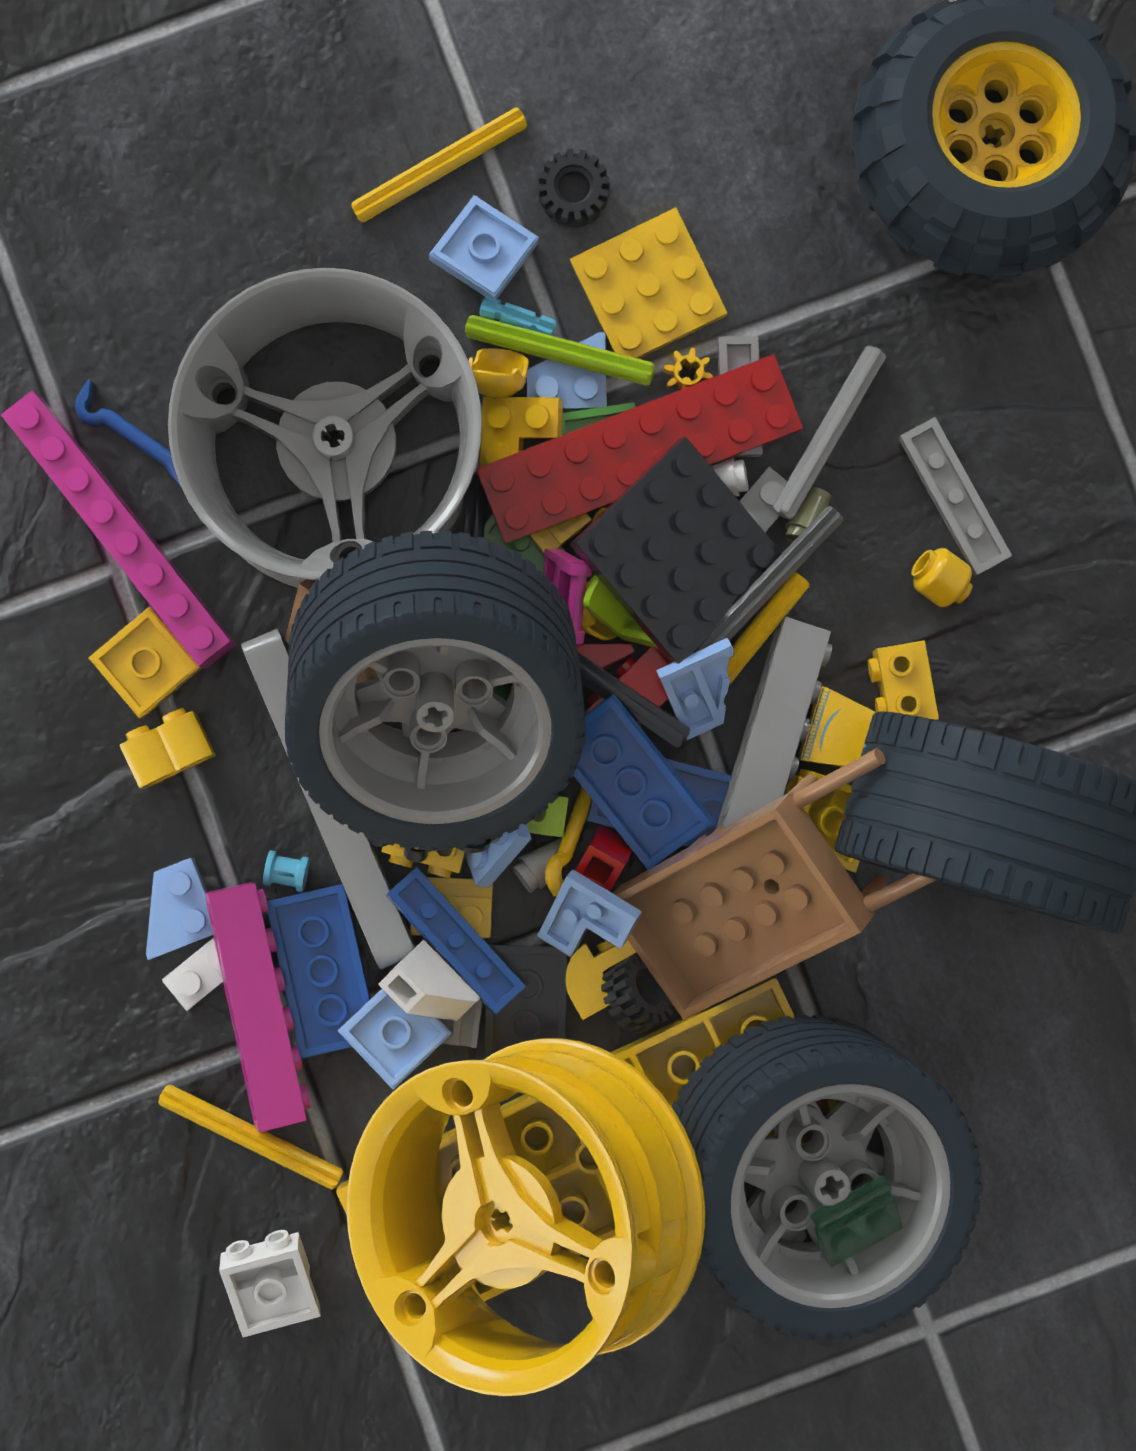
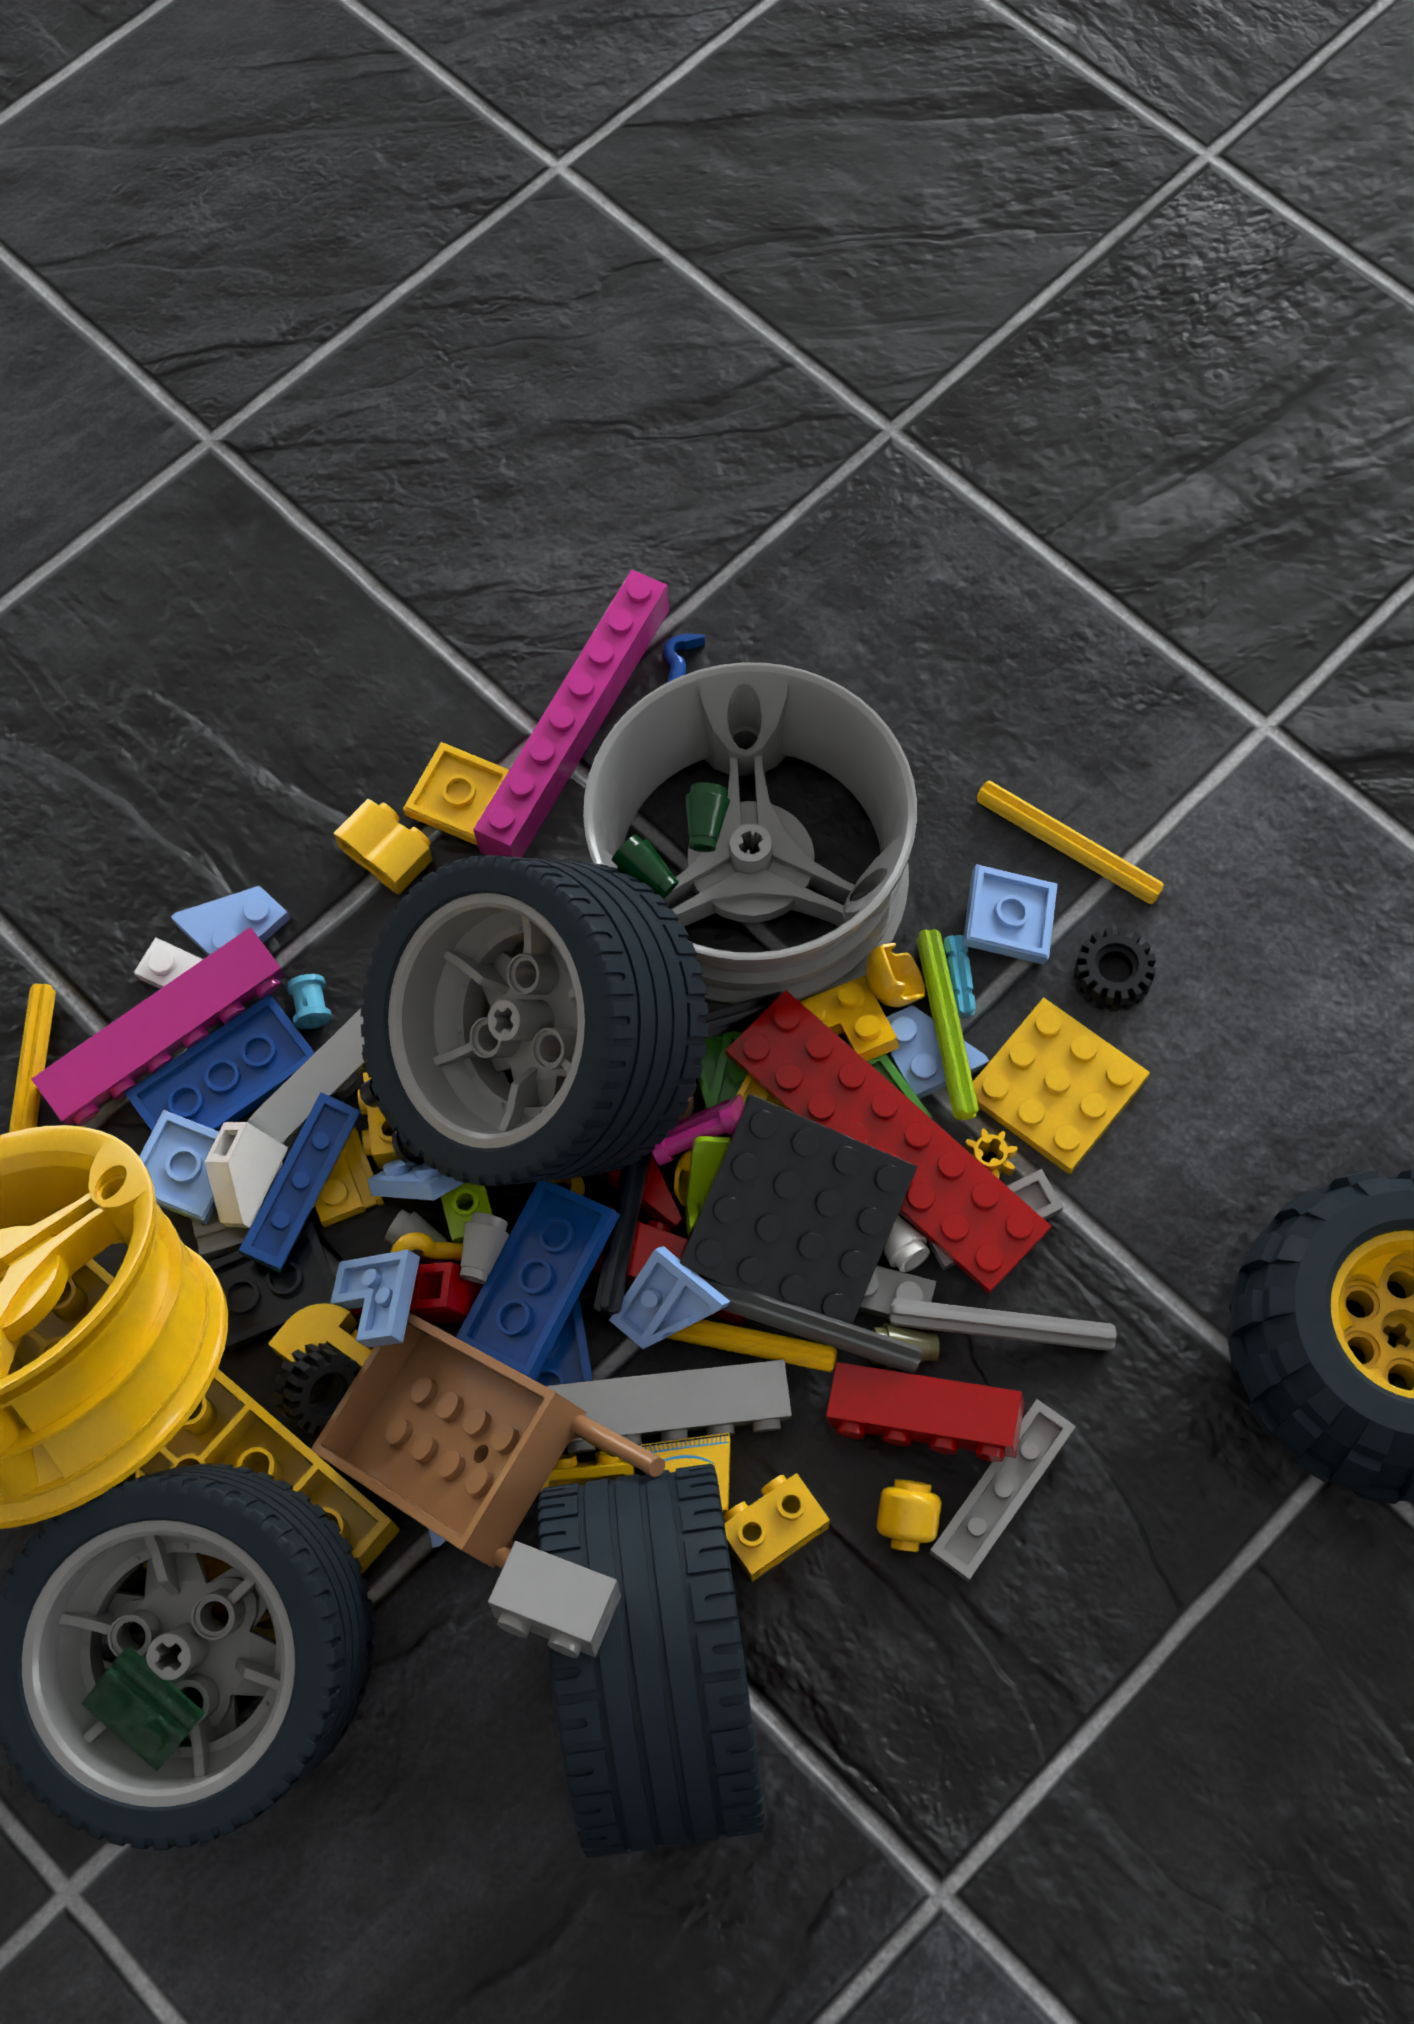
camera: 65 degrees right, 20 degrees down
(321, 465) = (705, 815): none -> dark green cone
(342, 538) = (642, 861): none -> dark green cone
(585, 815) = (482, 1246): none -> light grey cone
(873, 525) = (926, 1411): none -> red brick
(977, 878) = (554, 1601): none -> light grey brick

